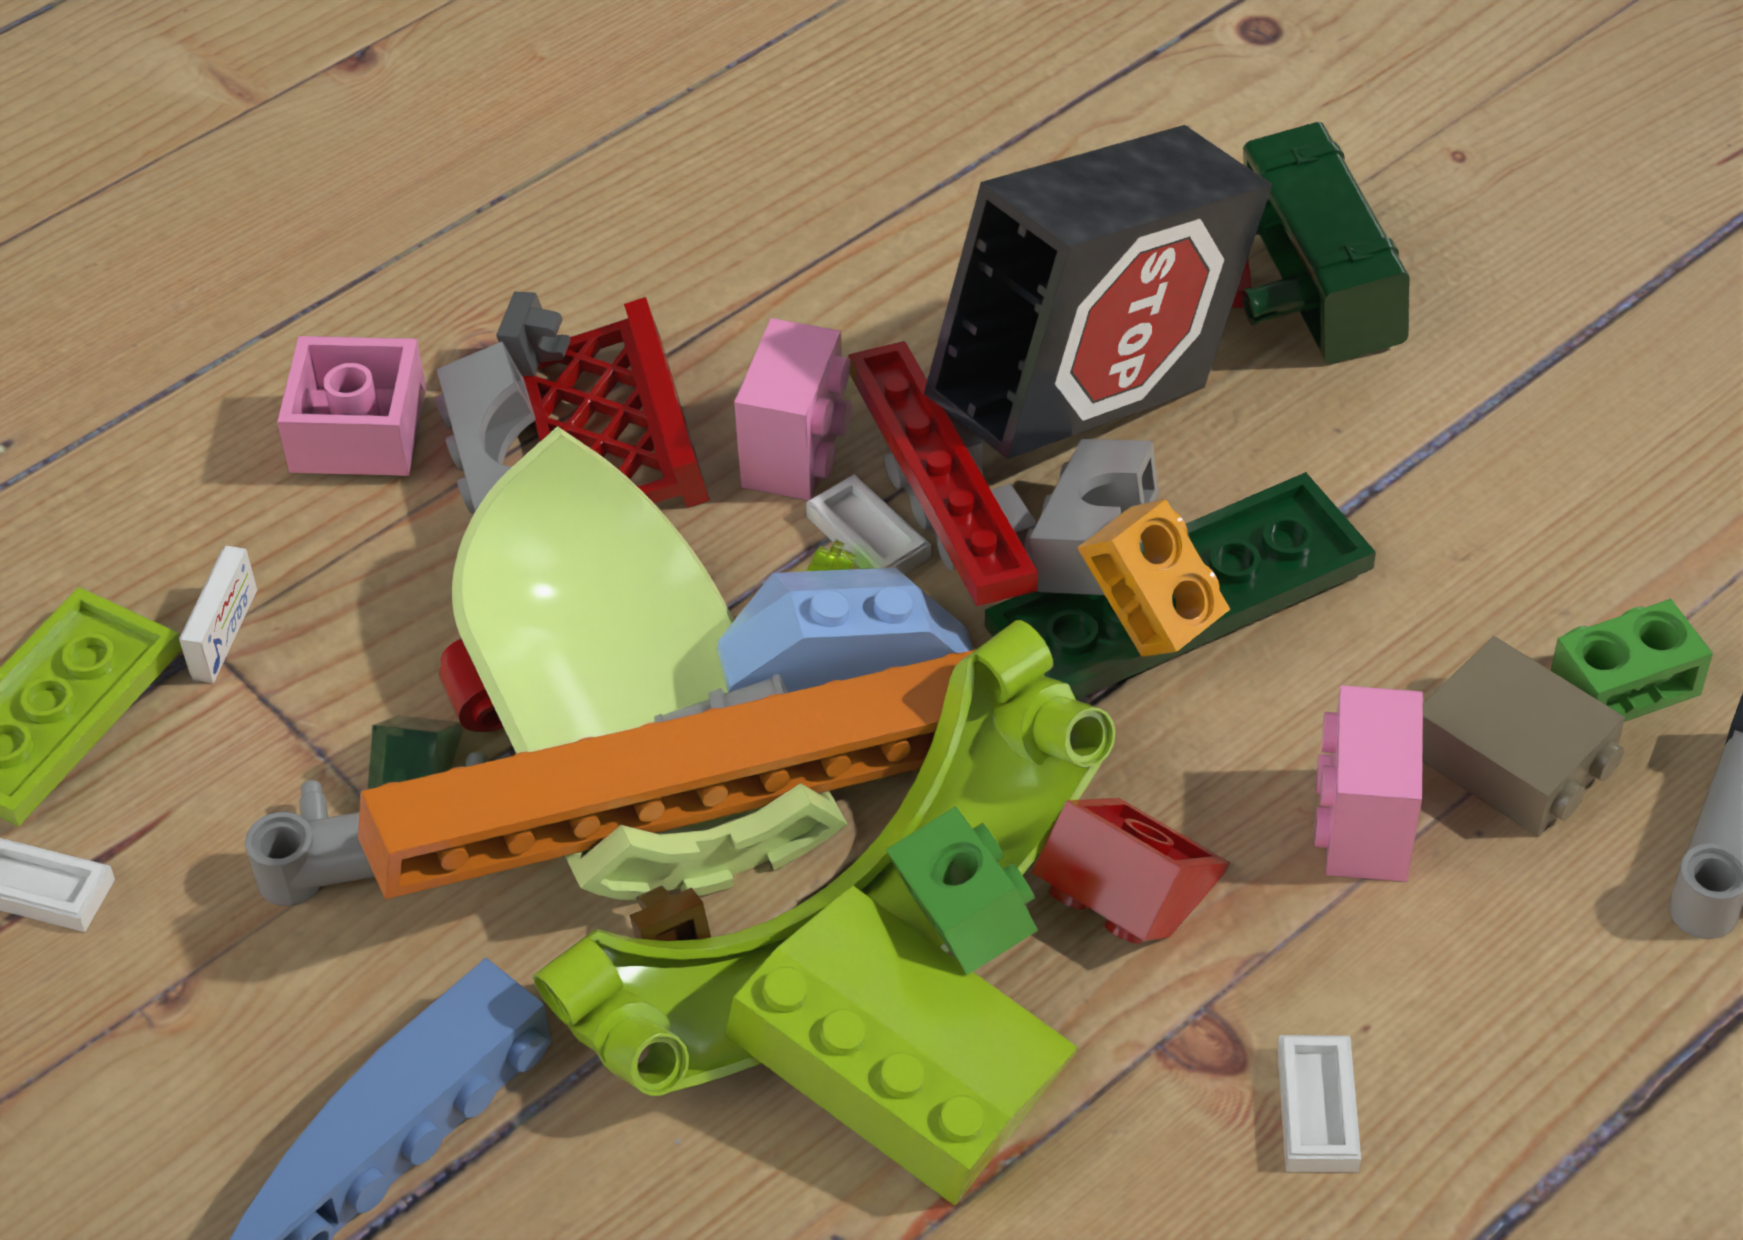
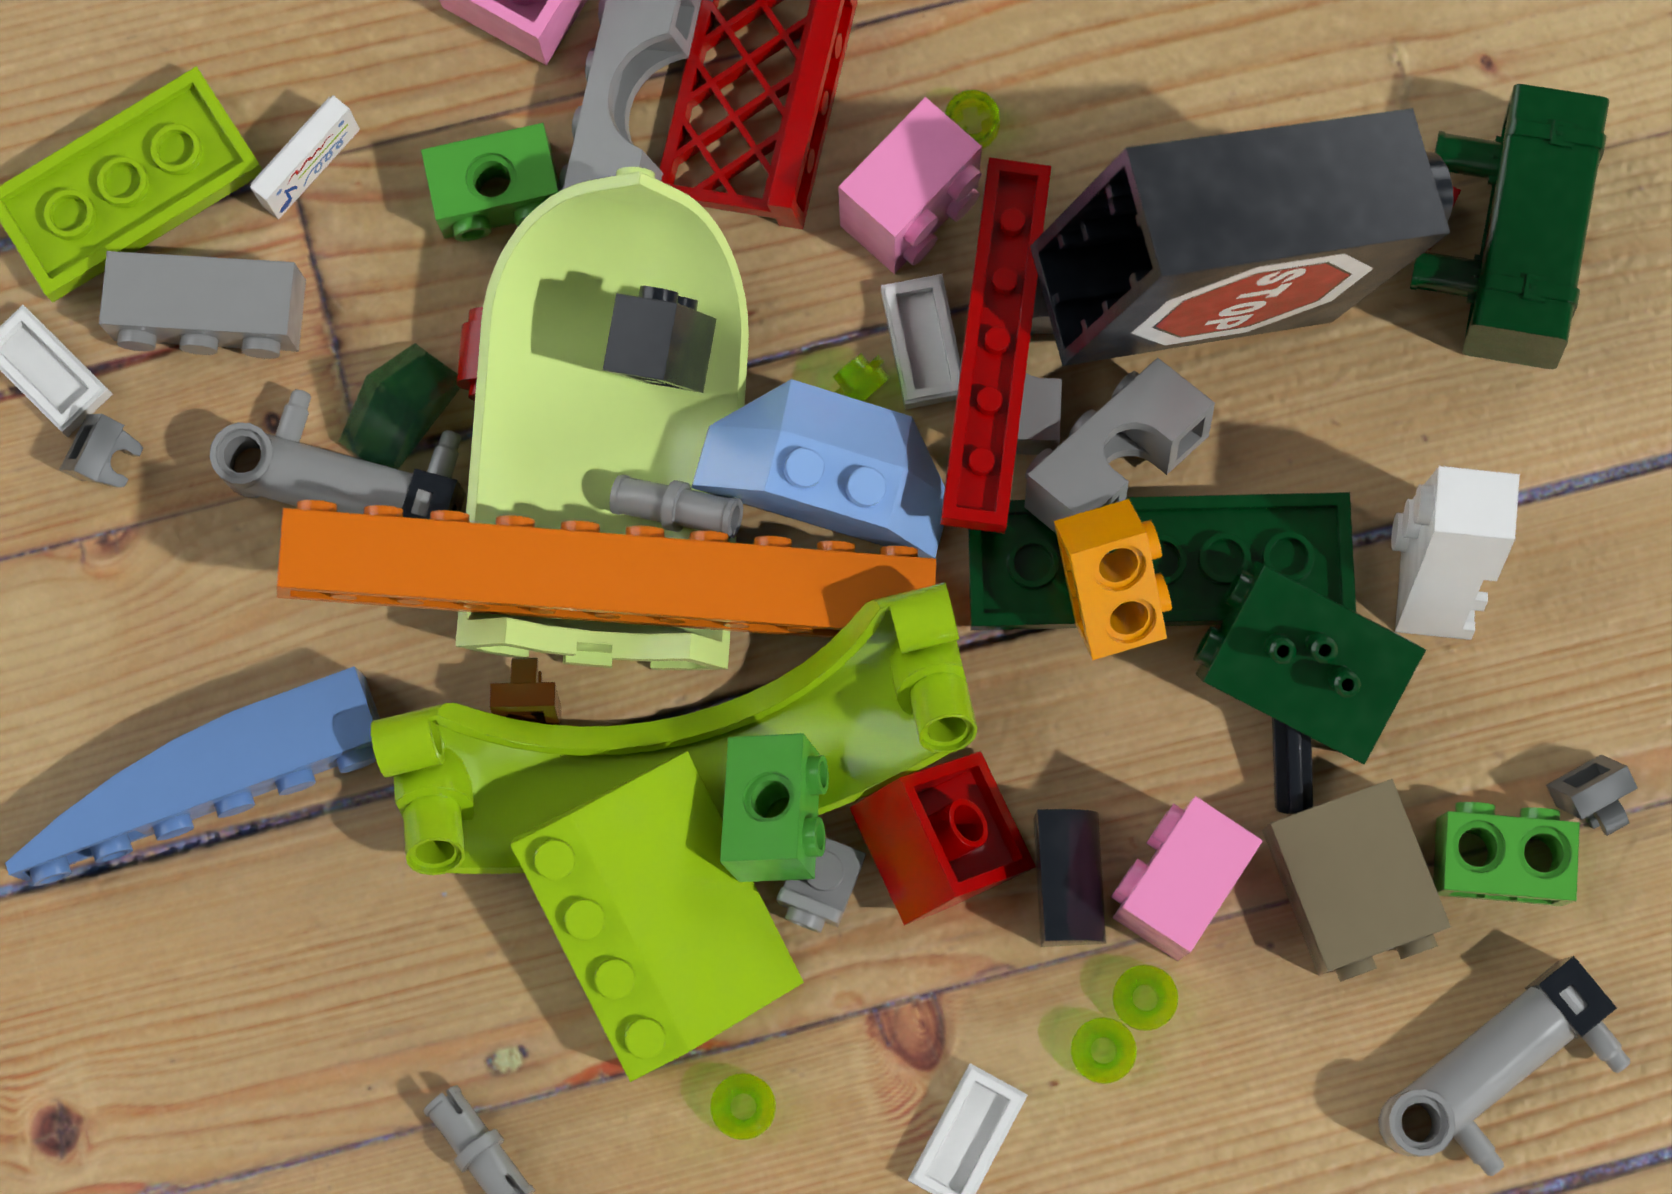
camera: 30 degrees right, 30 degrees up
(123, 914) = (93, 448): none -> dark grey tile
(175, 756) = (202, 303): none -> light grey brick
(401, 563) = (462, 167): none -> bright green brick
(638, 585) = (660, 339): none -> black brick
(1045, 963) = (825, 897): none -> light grey bracket
(1092, 1156) = (723, 1098): none -> clear neon green plate
(1263, 849) = (1069, 877): none -> black brick
(1361, 592) = (1309, 669): none -> dark green piece
(1396, 955) = (1124, 1050): none -> clear neon green plate
(1402, 897) = (1165, 992): none -> clear neon green plate
(1416, 445) = (1449, 543): none -> white wedge
(1668, 581) = (1594, 793): none -> dark grey tile

